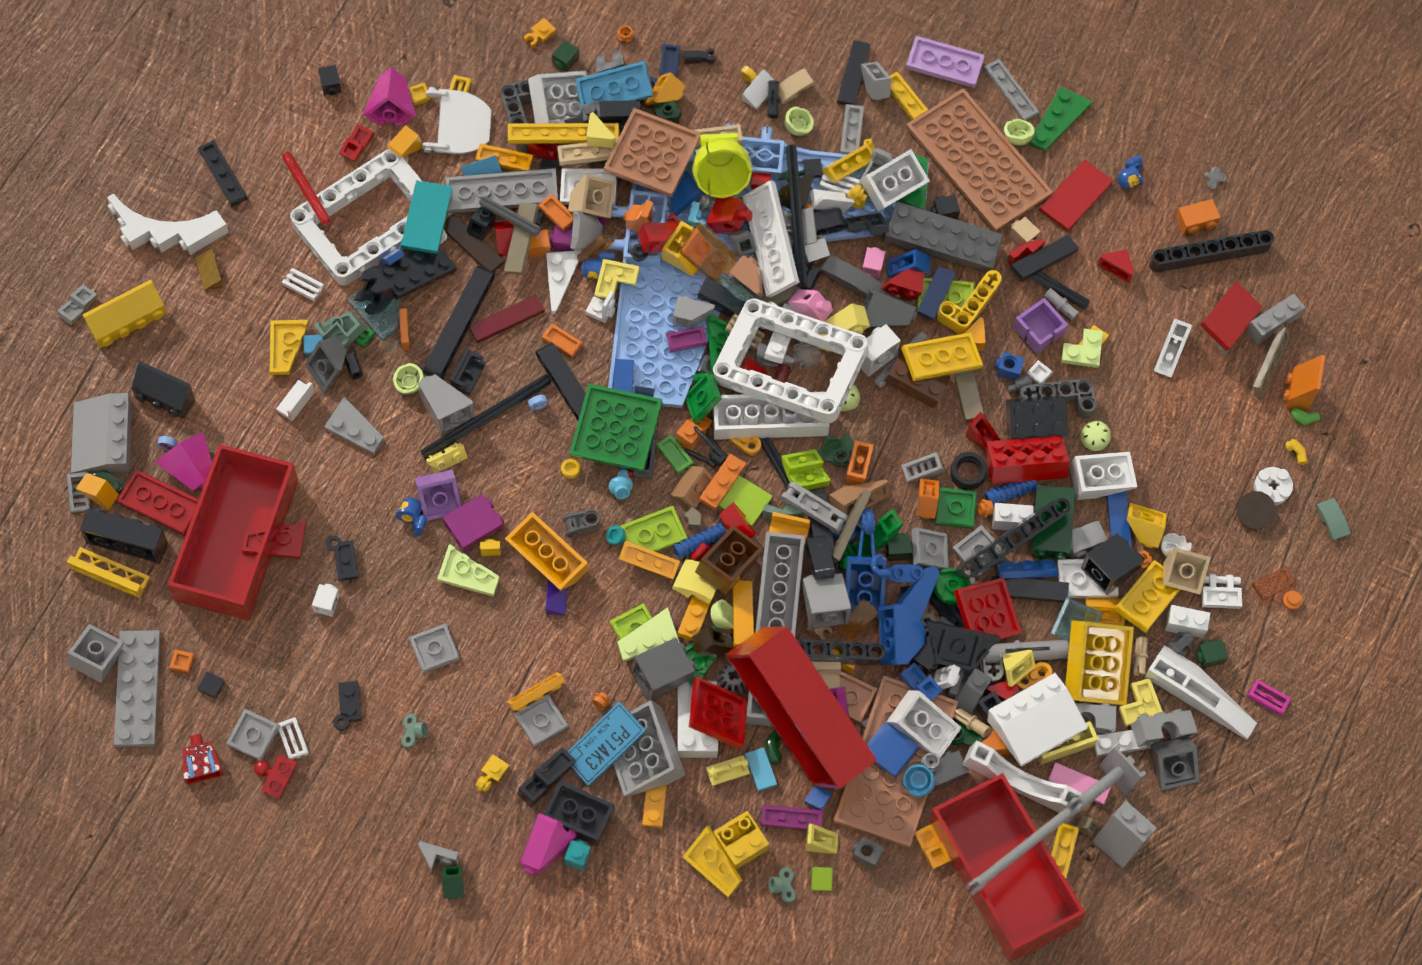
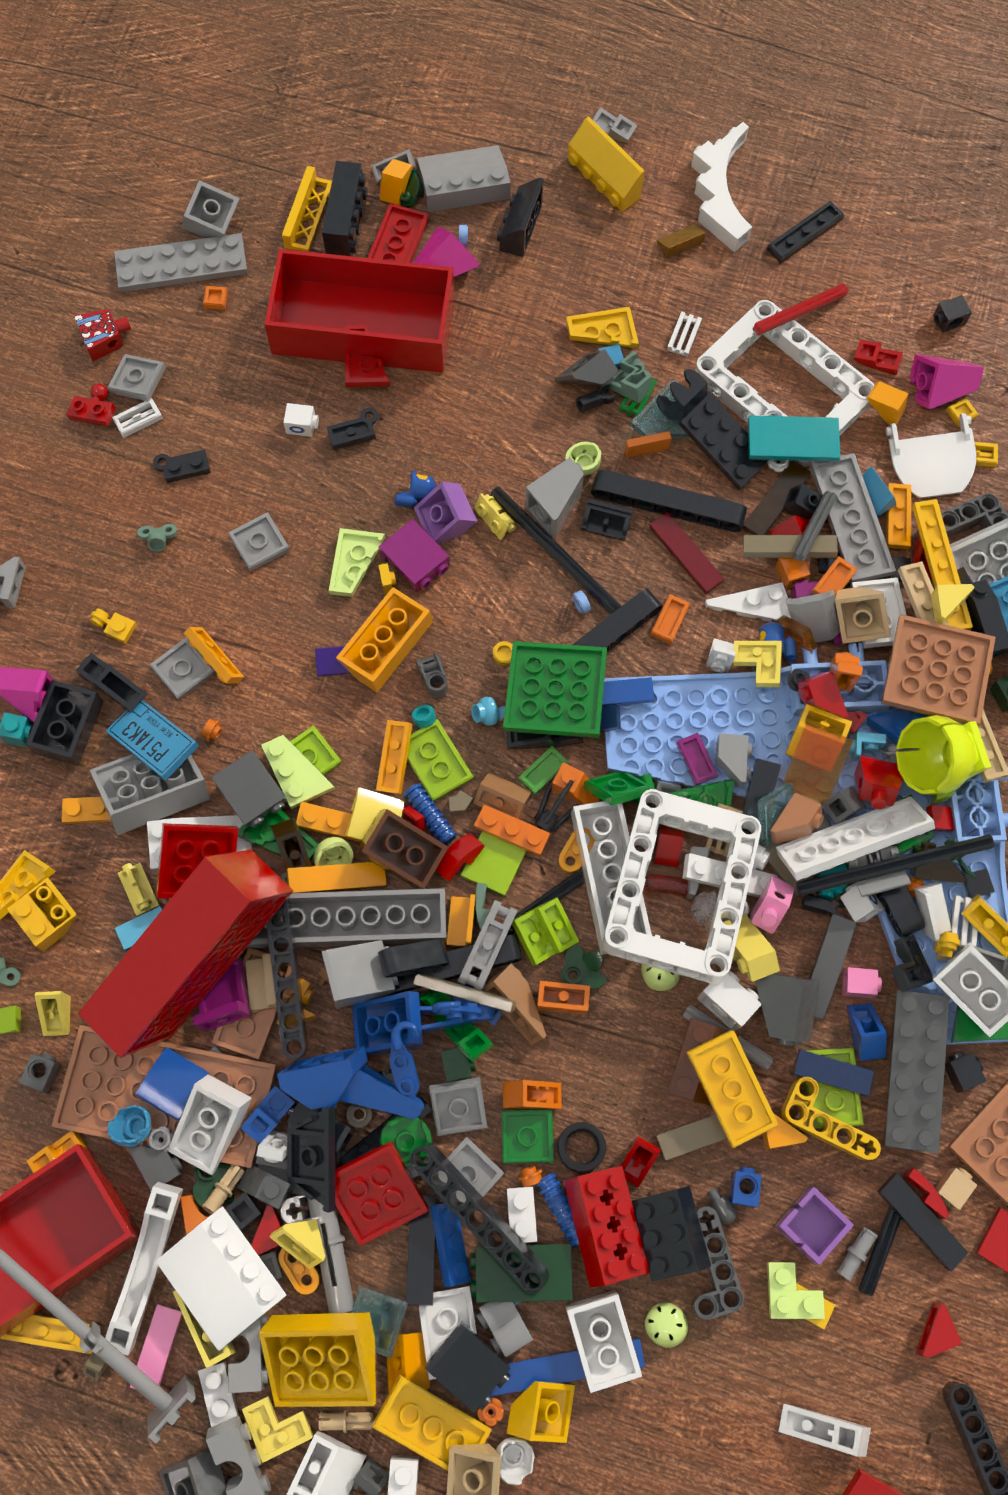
camera: 85 degrees right, 5 degrees up
(211, 684) = (191, 329): black tile -> none
(295, 400) = (538, 351): white panel -> none
(353, 427) = (516, 413): light grey wing -> none
(391, 257) = (732, 410): blue slope -> none
(790, 817) = (80, 971): magenta plate -> none
(858, 619) = (347, 1023): clear orange tile -> none
(906, 284) = (837, 1031): red slope -> none
(920, 462) = (586, 1105): light grey slope -> none
(1039, 373) = (746, 1232): white tile -> none
(1124, 834) = (80, 1421): light grey slope -> none

